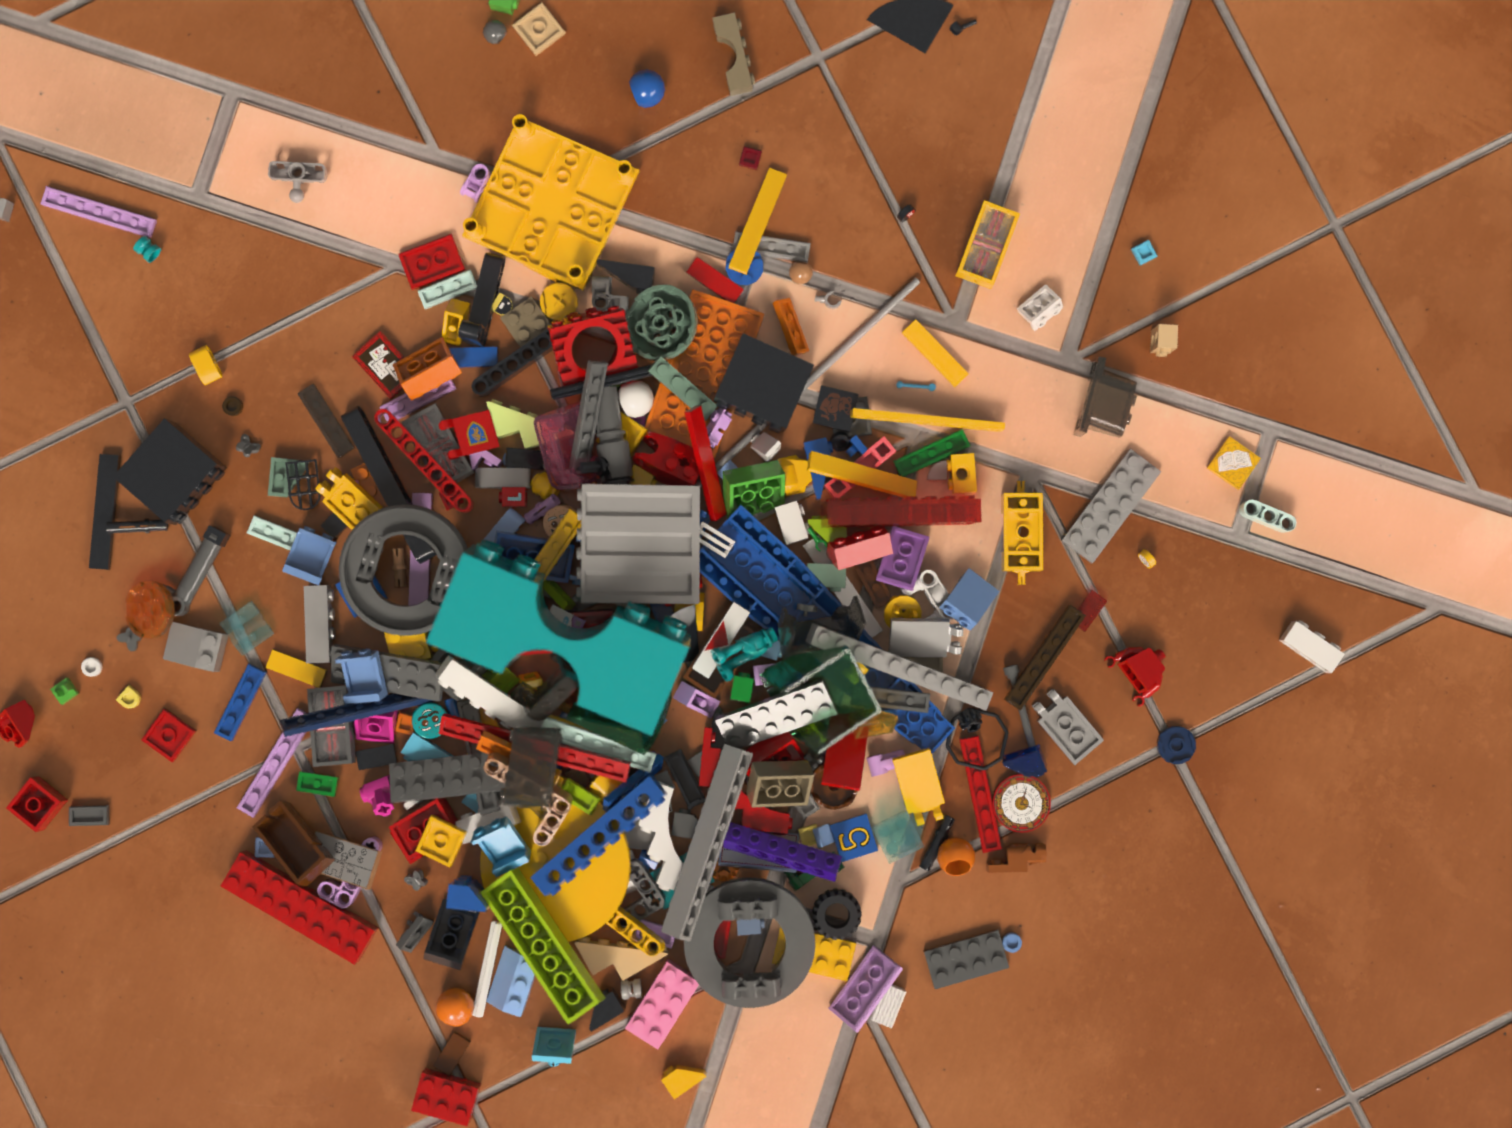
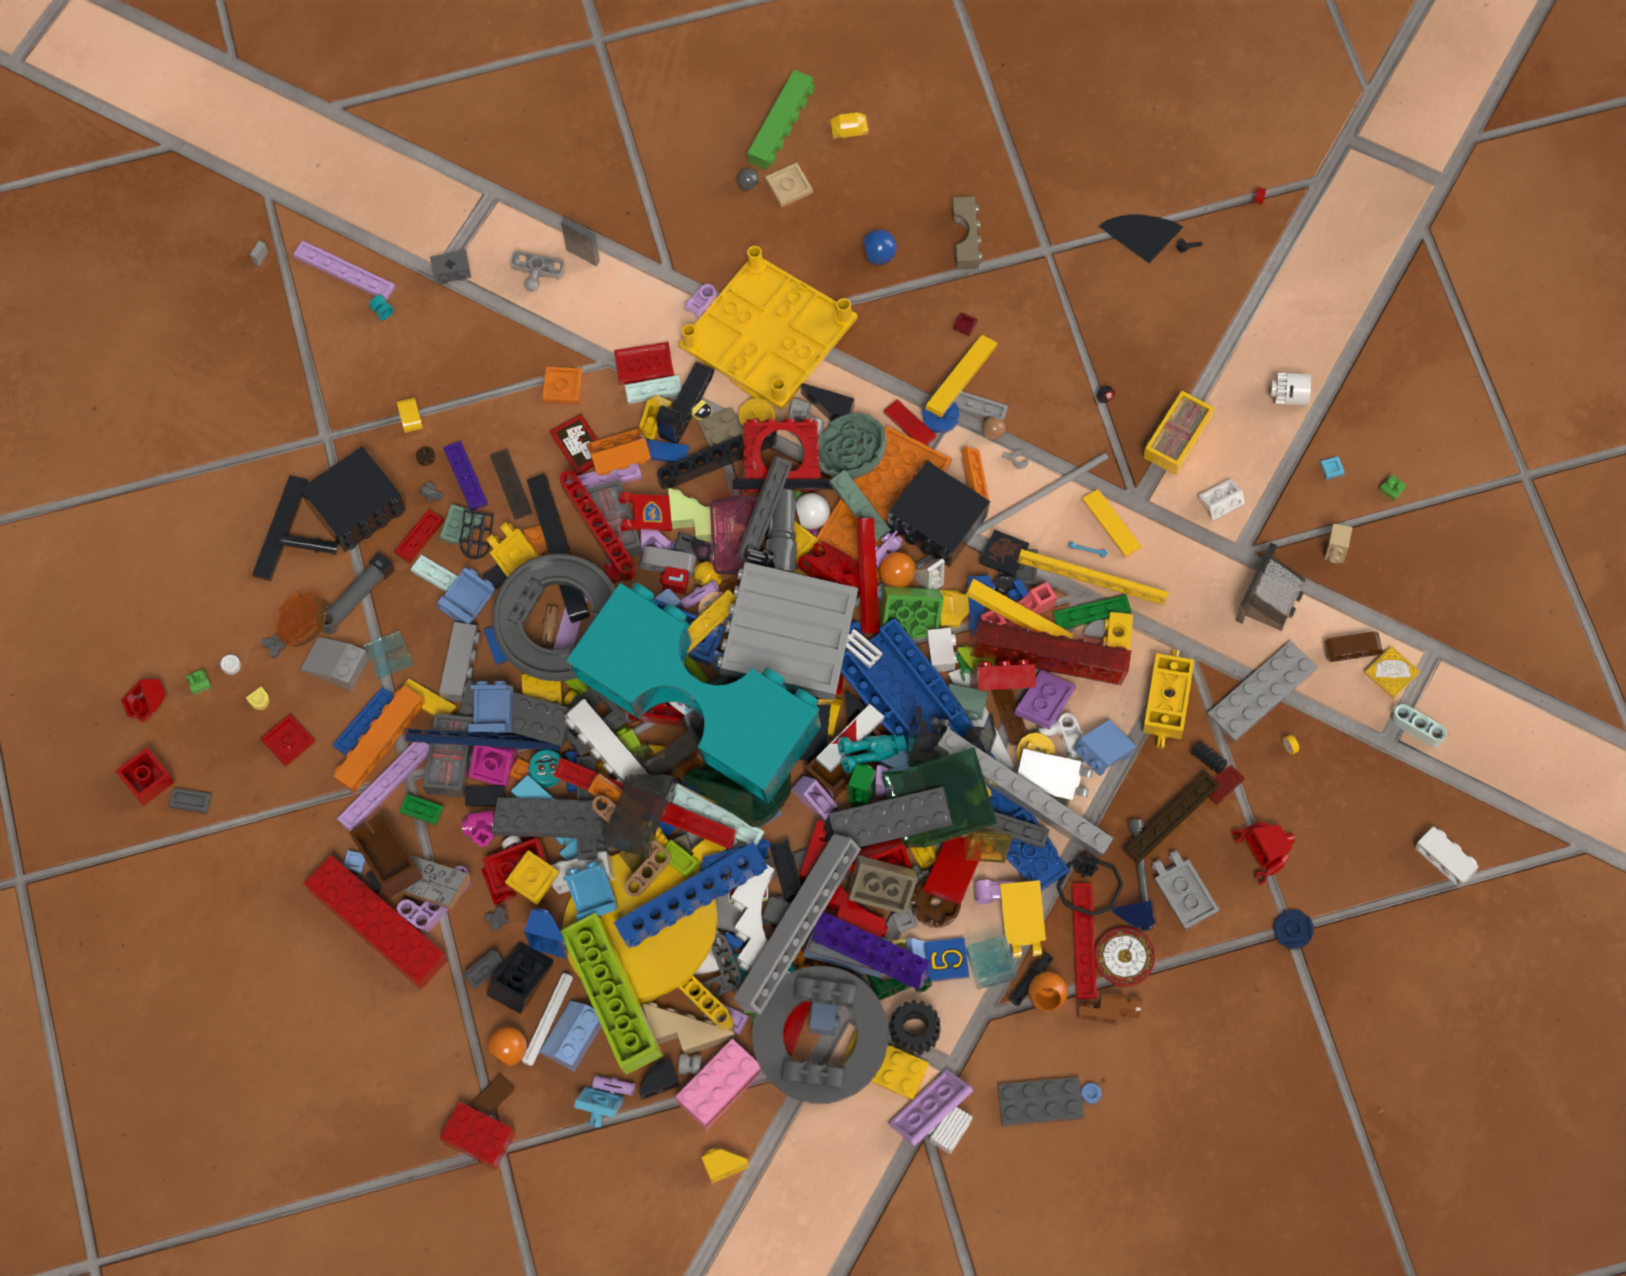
camera: 15 degrees right, 20 degrees down
(198, 190) = (450, 267): none -> dark grey brick
(247, 494) = (419, 536): none -> red tile
(258, 720) = (379, 739): none -> orange brick
(278, 420) = (465, 476): none -> dark purple tile
(336, 141) = (580, 241): none -> dark grey tile
(353, 301) = (562, 385): none -> orange tile
(559, 1022) = (627, 1088): none -> lavender pin
(716, 600) = (853, 707): none -> black slope
(733, 450) = (897, 570): none -> orange helmet
(1070, 586) = (1209, 757): none -> black piece
(1093, 175) = (1291, 388): none -> white gear
(1192, 444) = (1353, 646): none -> reddish brown beam
(1207, 263) = (1393, 487): none -> bright green tile

